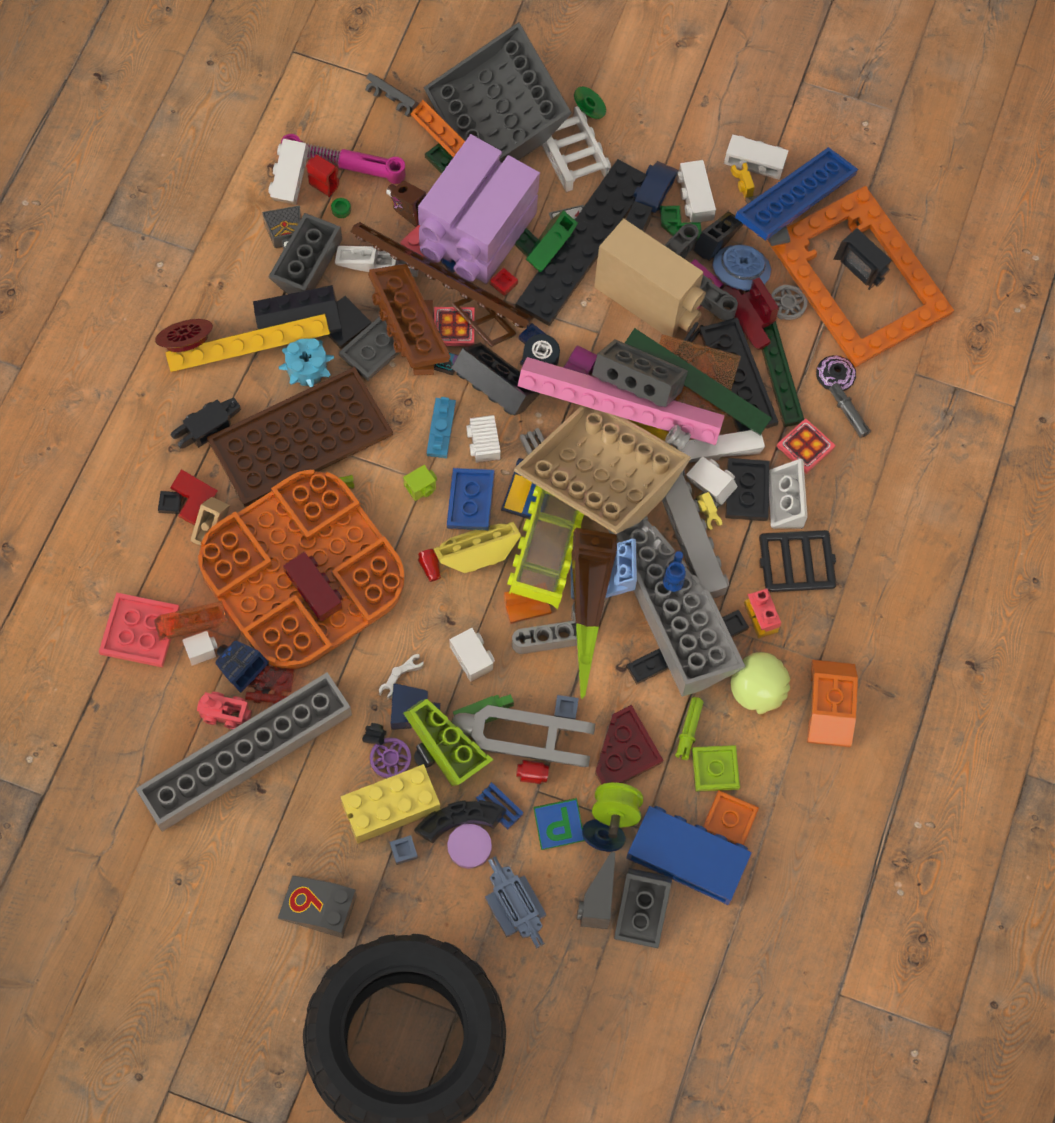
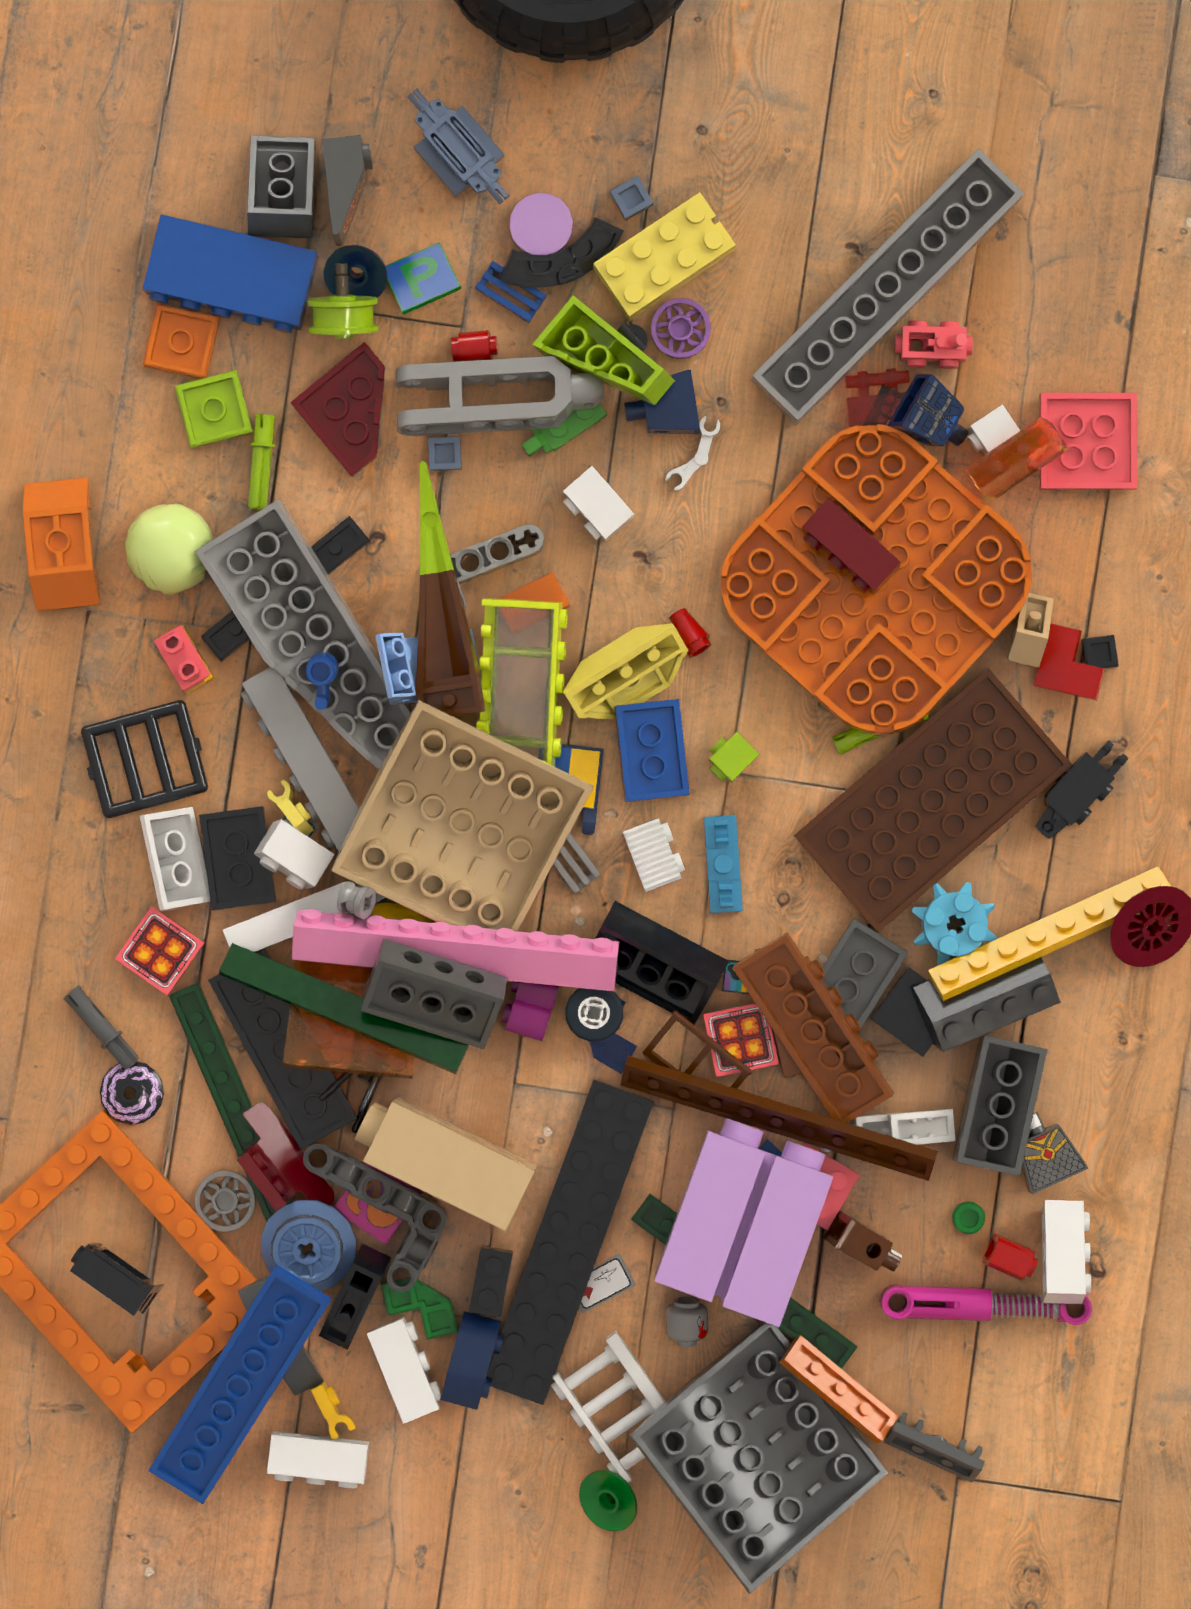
camera: 175 degrees right, 20 degrees up
(318, 905) = (732, 95): dark grey slope -> none
(374, 734) = (710, 355): black plate -> none
(504, 281) = (680, 1136): red plate -> none
(551, 240) = (619, 1220): green slope -> none

